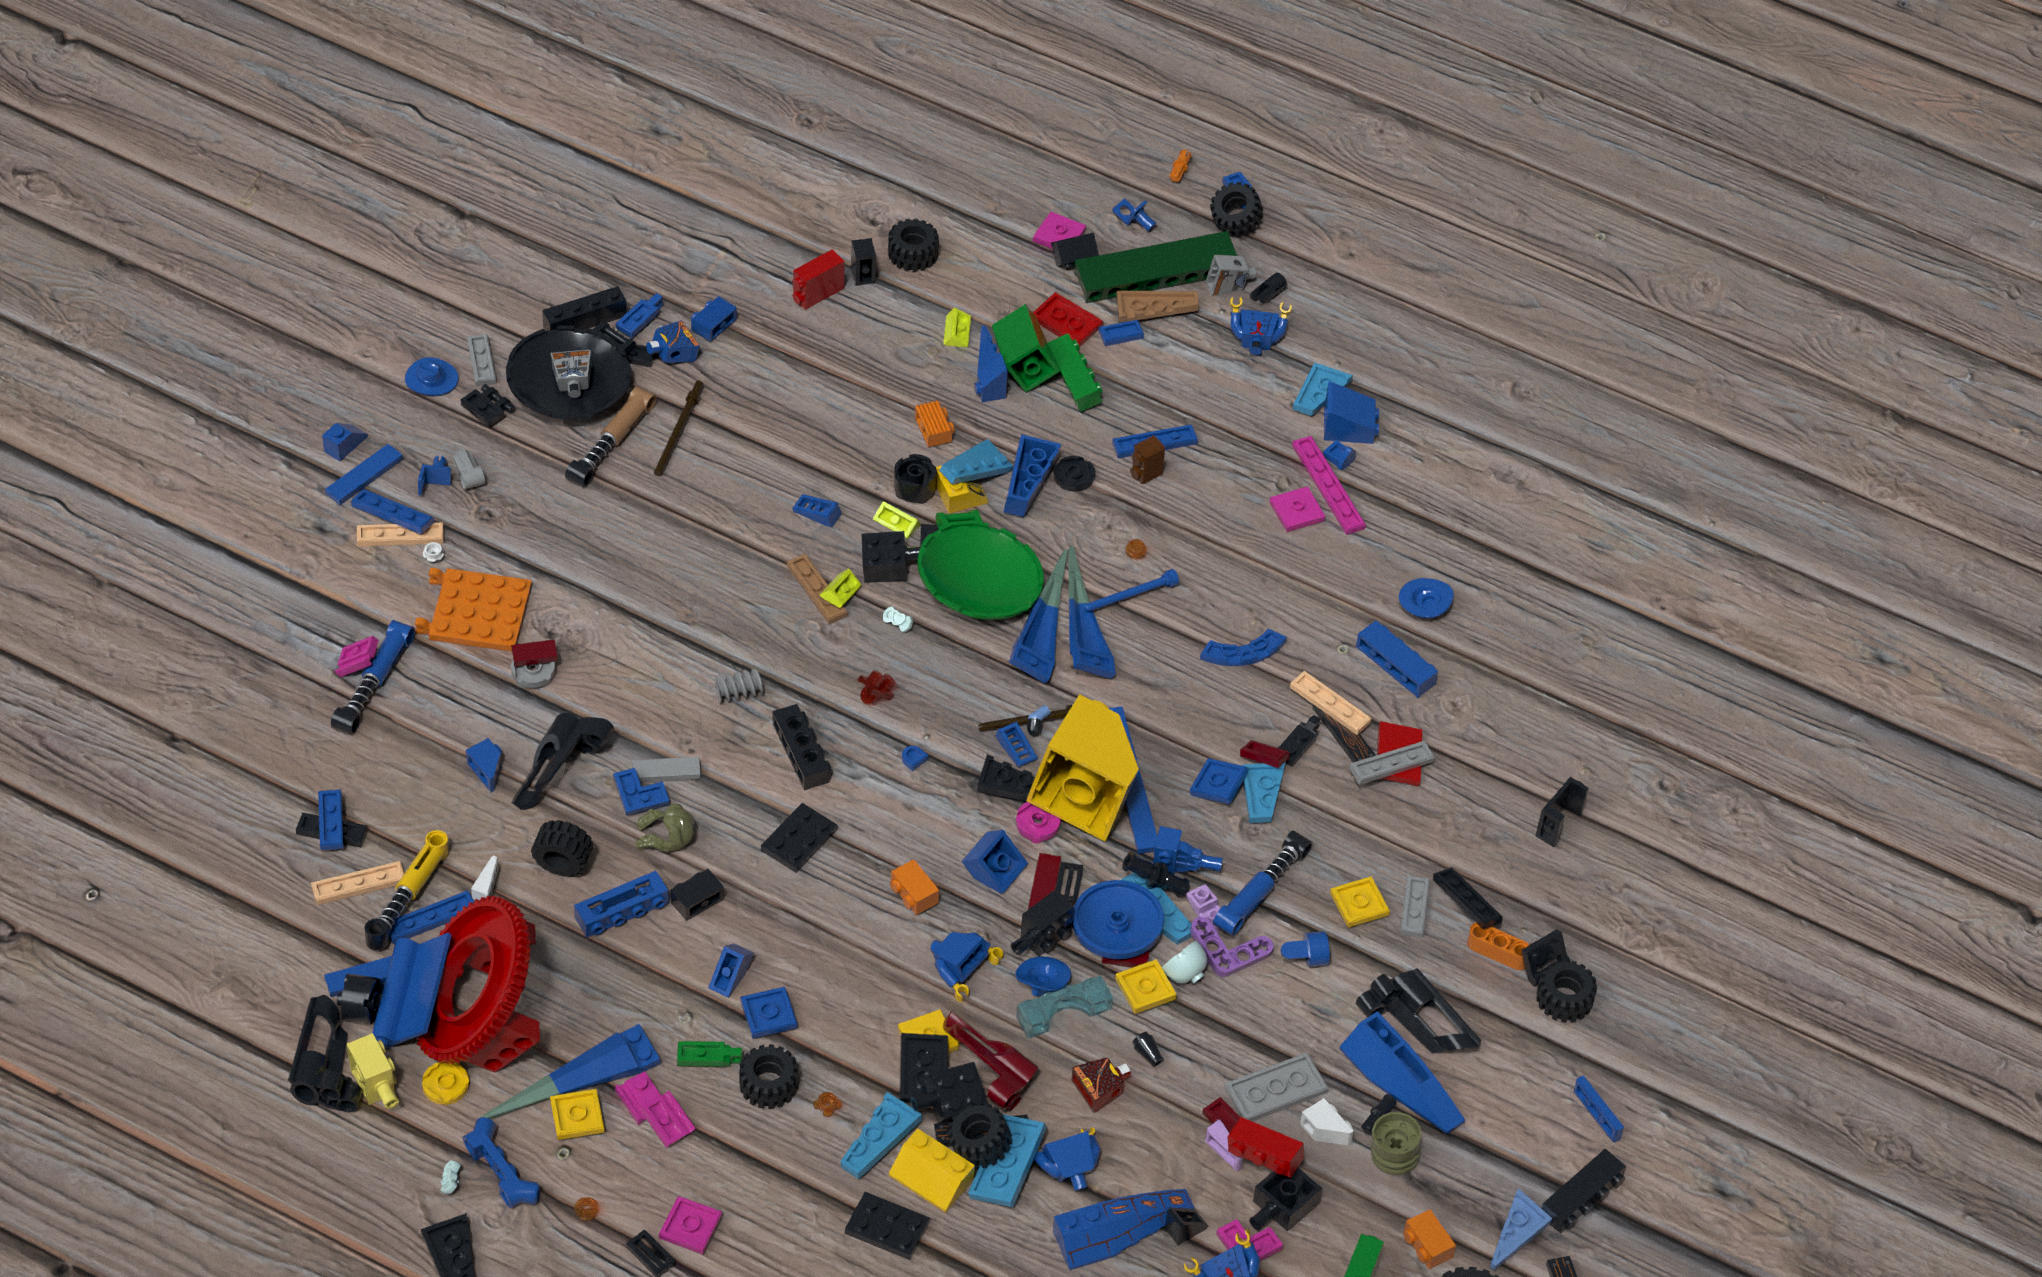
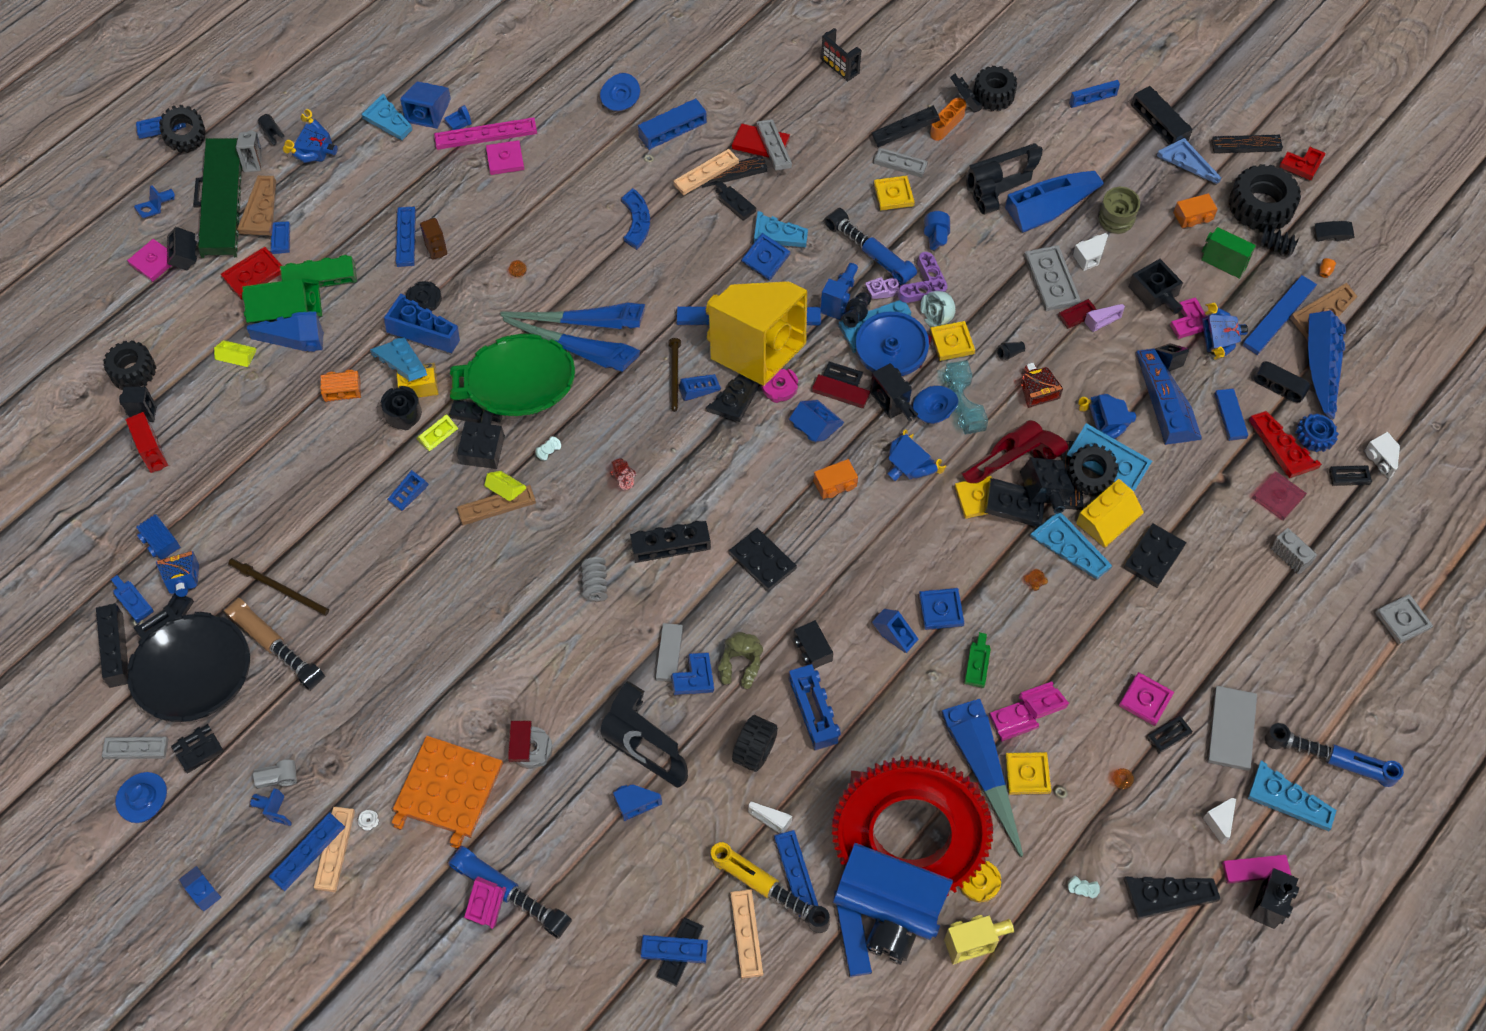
camera: 75 degrees left, 10 degrees up
(319, 1076) = (966, 992): black panel -> none
(363, 474) = (248, 874): blue tile -> none
(511, 1189) = (1053, 856): blue plate -> none
(572, 371) = (187, 663): light grey torso -> none
(768, 1061) = (1013, 602): black tyre -> none
(914, 757) = (695, 462): blue tile -> none
(1035, 720) = (680, 366): arm -> none
(1168, 579) = (555, 253): blue piece -> none
(1180, 166) = (111, 161): orange axle -> none
(1264, 753) = (746, 222): dark red tile -> none
(1265, 1147) = (1126, 283): red brick -> none
(1382, 1108) = (1083, 219): black axle -> none

